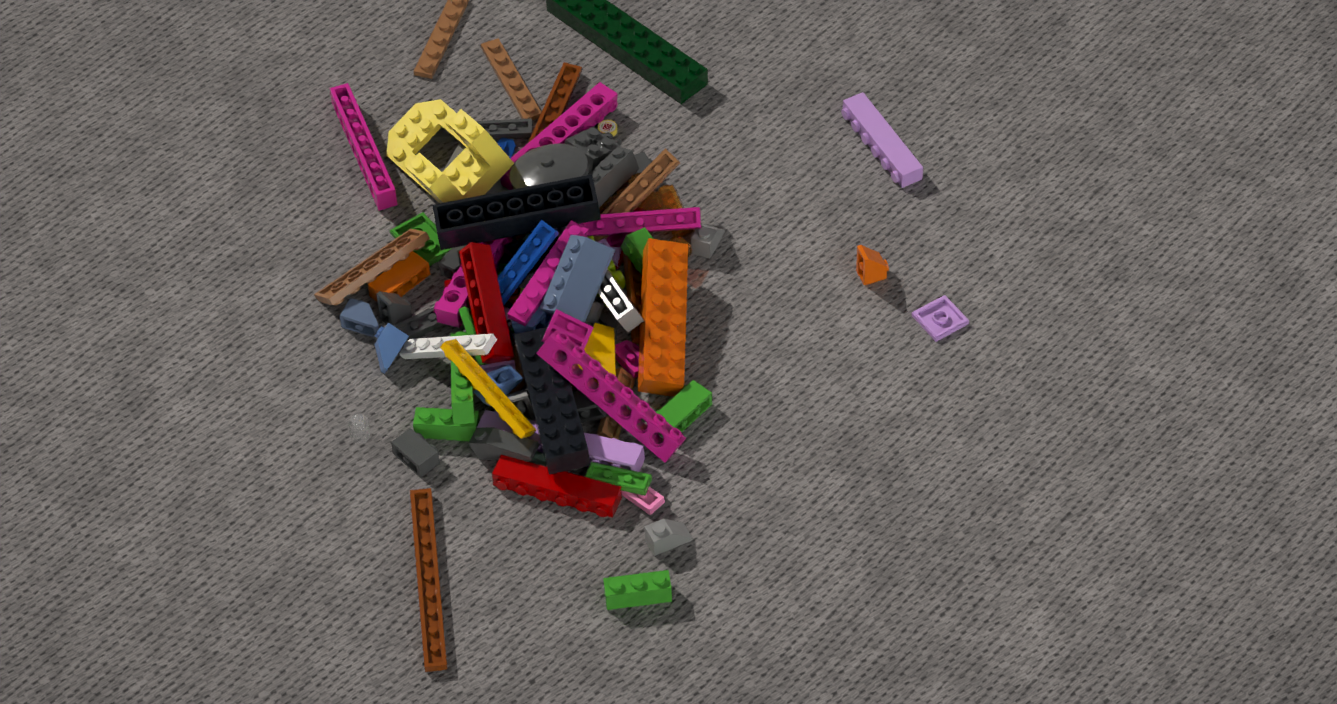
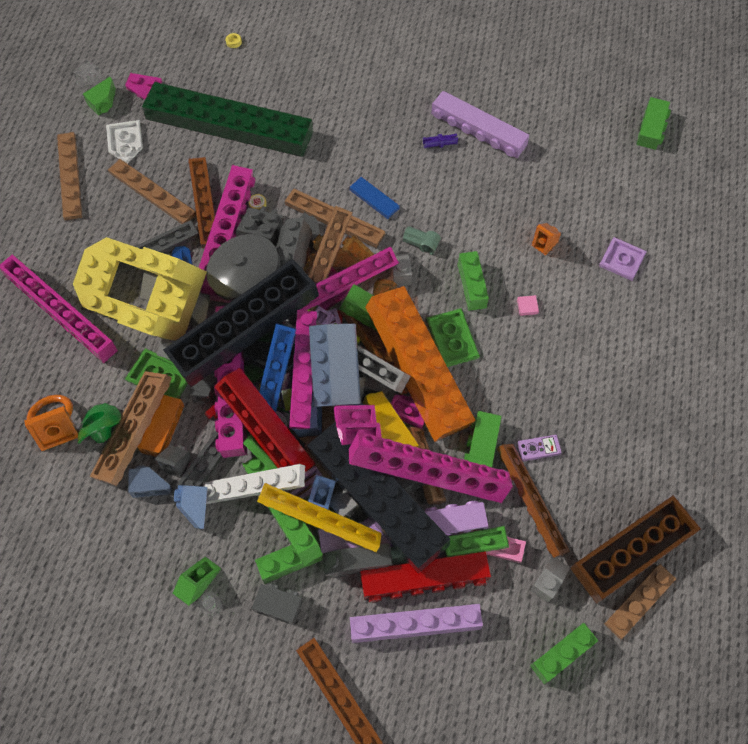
camera: 30 degrees left, 15 degrees up
(305, 238) = (53, 426): none -> orange tile
(345, 255) = (99, 422): none -> green hat
(356, 402) = (195, 580): none -> bright green slope
(514, 22) = (124, 140): none -> white tile
(524, 514) = (415, 623): none -> lavender brick
(680, 176) = (322, 212): none -> medium nougat plate
(695, 472) = (534, 502): none -> dark orange plate
(717, 318) = (452, 337): none -> bright green tile
(726, 168) = (374, 197): none -> blue tile
(733, 438) = (539, 448): none -> lavender tile
(738, 588) = (640, 601): none -> medium nougat plate
(748, 224) = (425, 241): none -> sand green piece
(759, 543) = (634, 549): none -> reddish brown brick
(769, 275) = (473, 281): none -> bright green brick
(811, 320) = (527, 305): none -> bright pink tile
(830, 140) = (440, 140): none -> dark purple pin
(1070, 207) = (654, 123): none -> bright green brick

